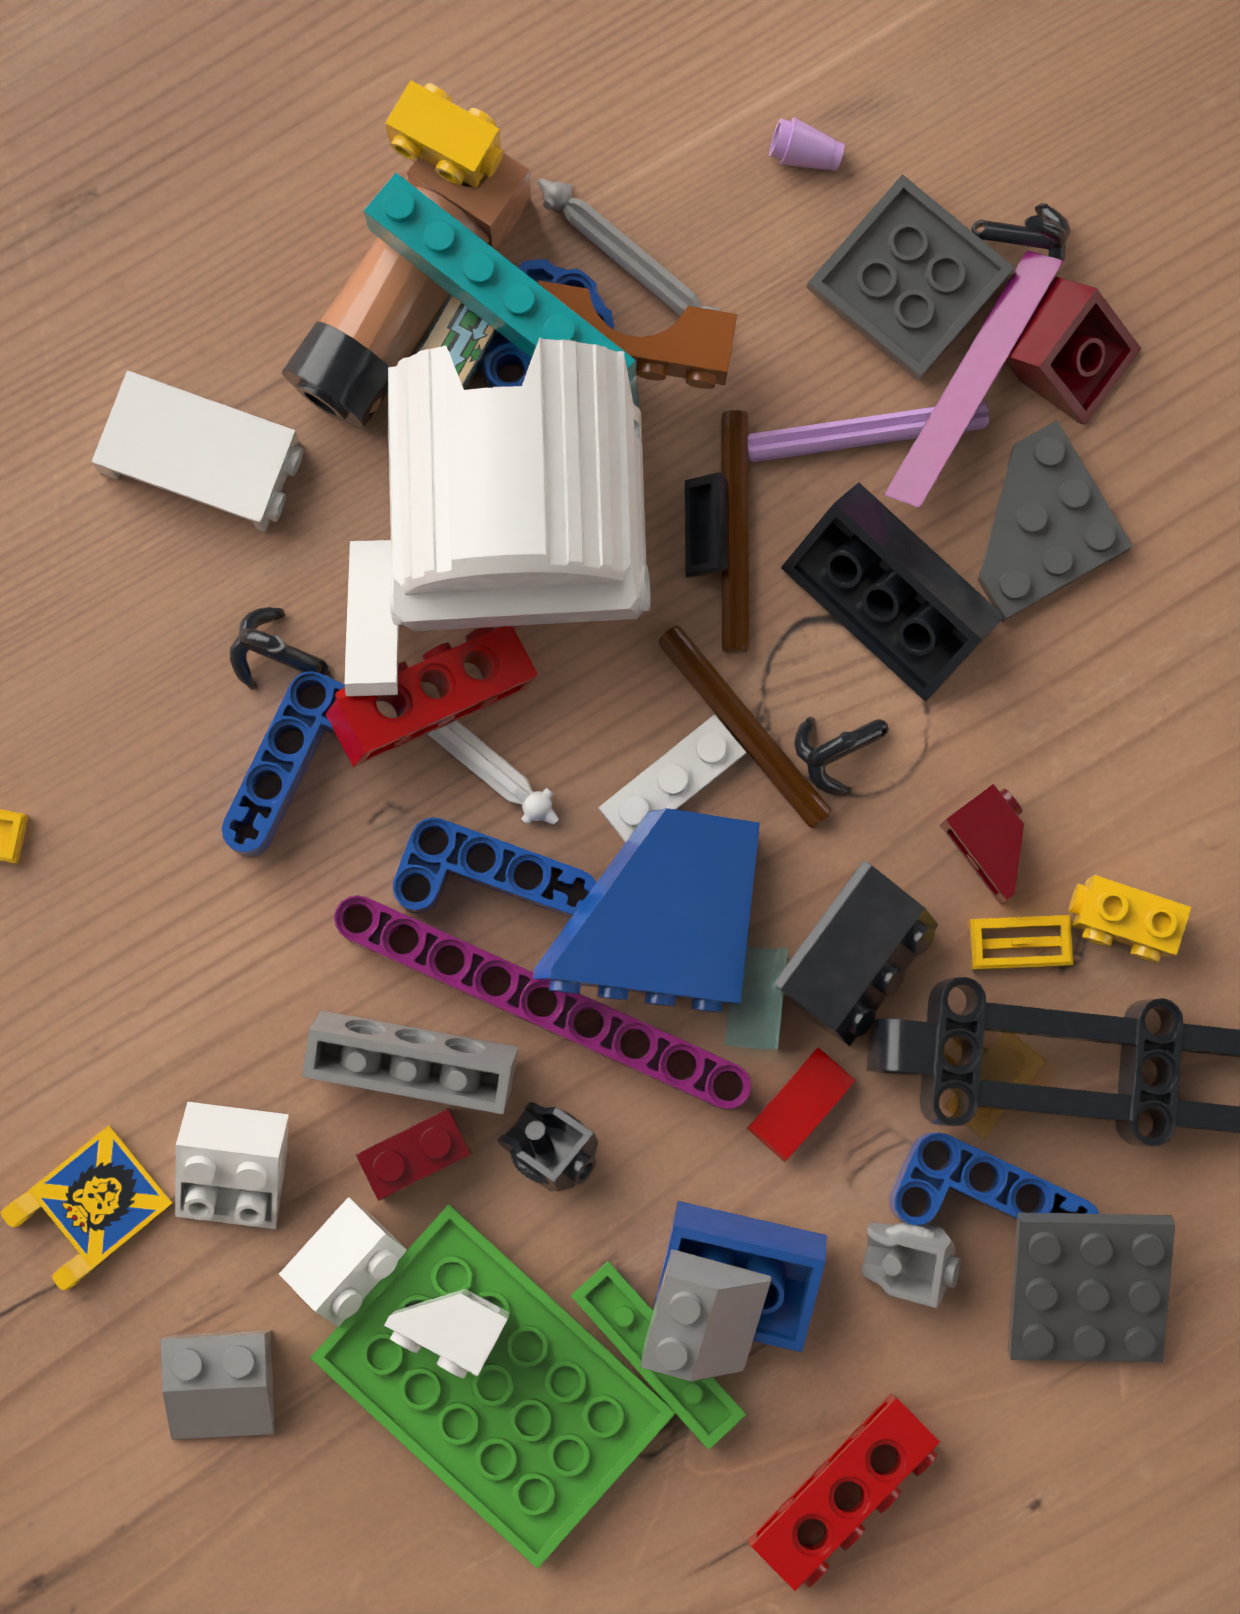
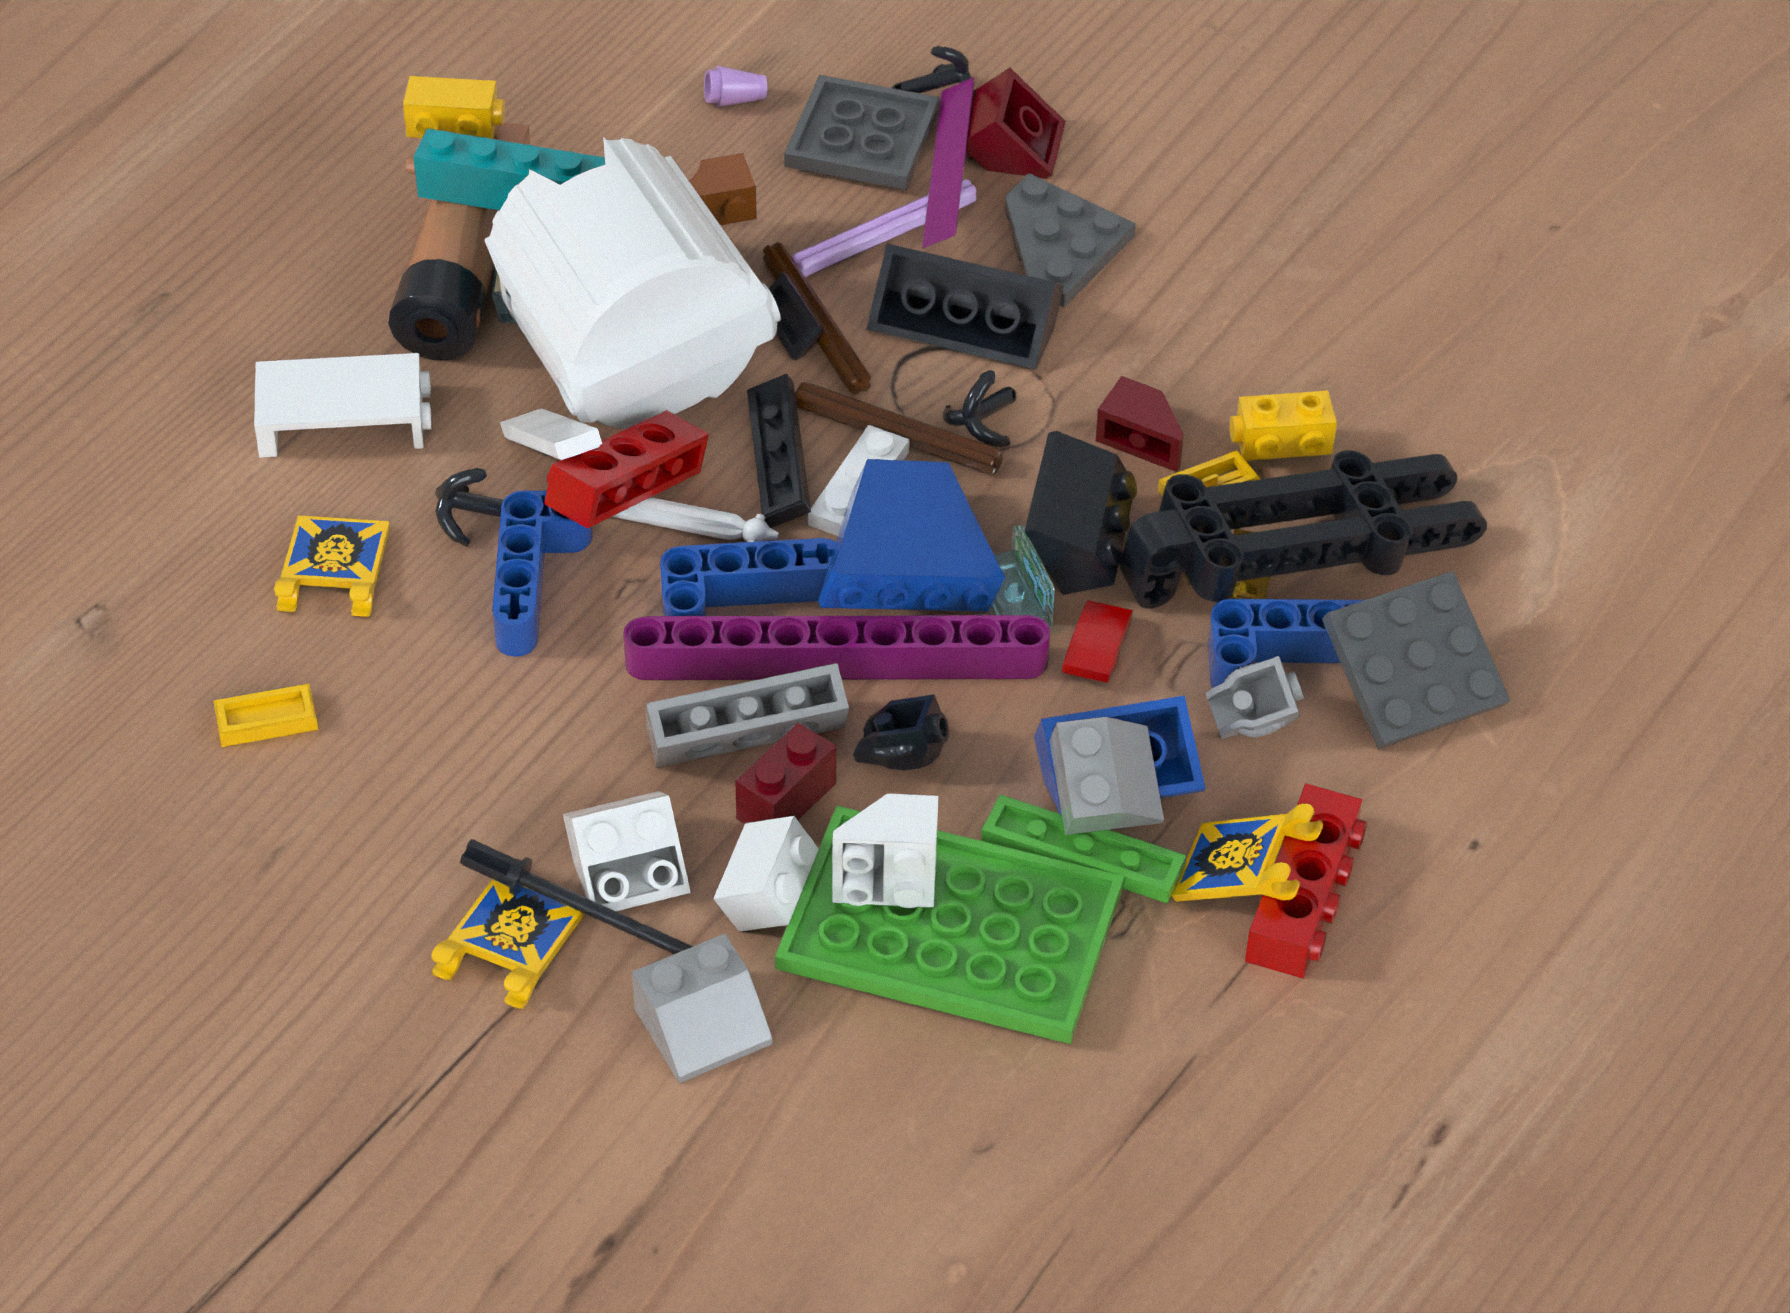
camera: 20 degrees left, 35 degrees down
(114, 1150) = (516, 874): none -> black piece
(116, 648) = (333, 555): none -> flag
(608, 710) = (778, 451): none -> black tile
(790, 1442) = (1240, 856): none -> flag

